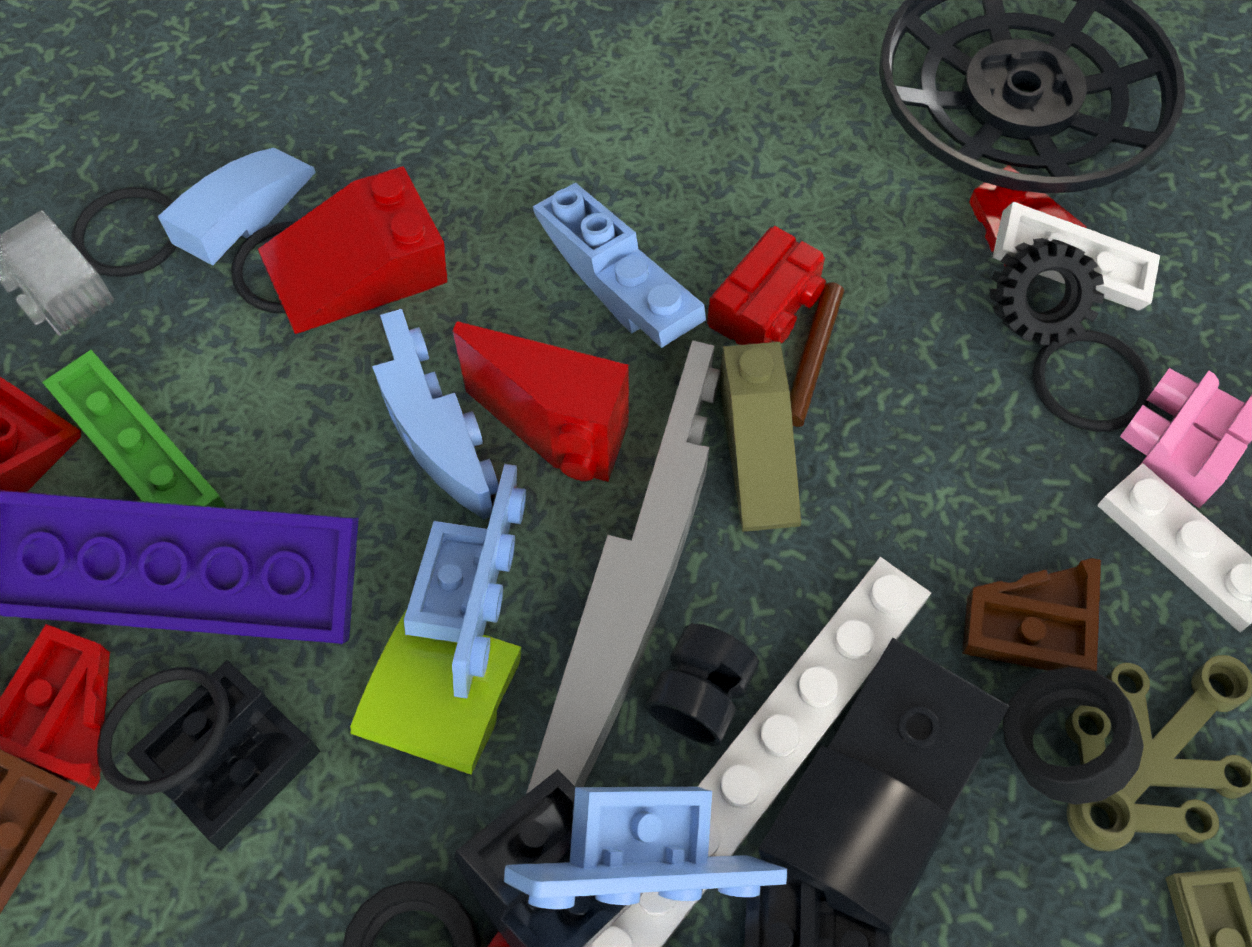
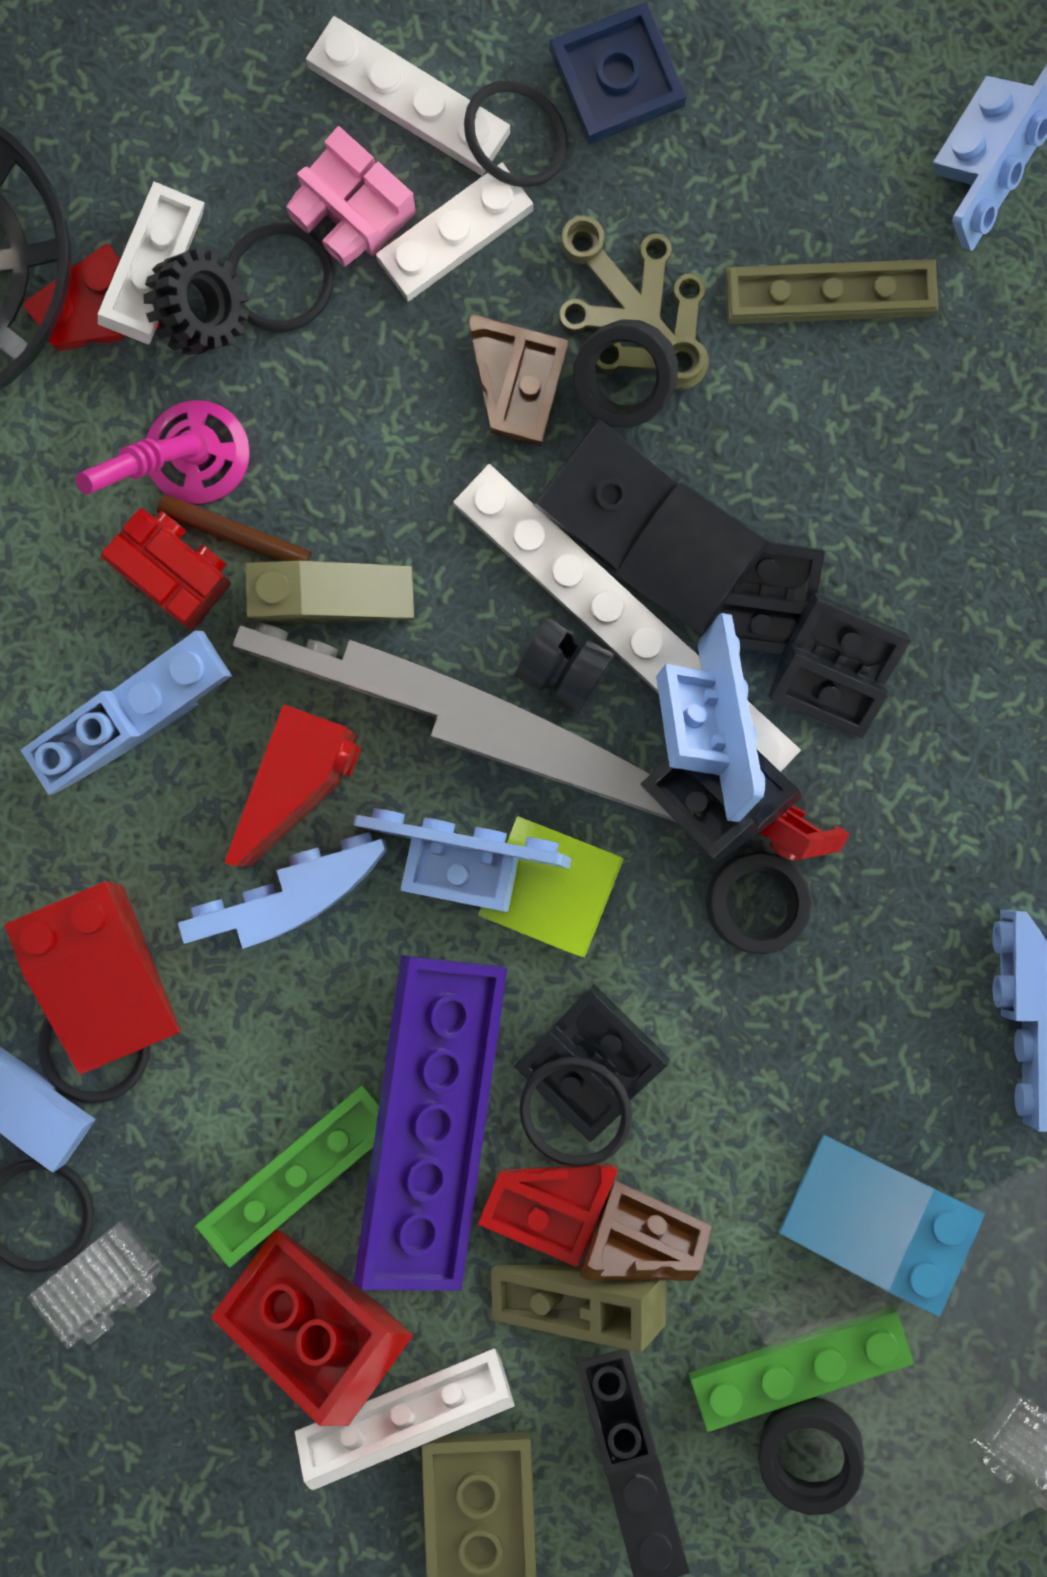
camera: 90 degrees left, 25 degrees up
(894, 306) = (187, 453): none -> dark pink dish

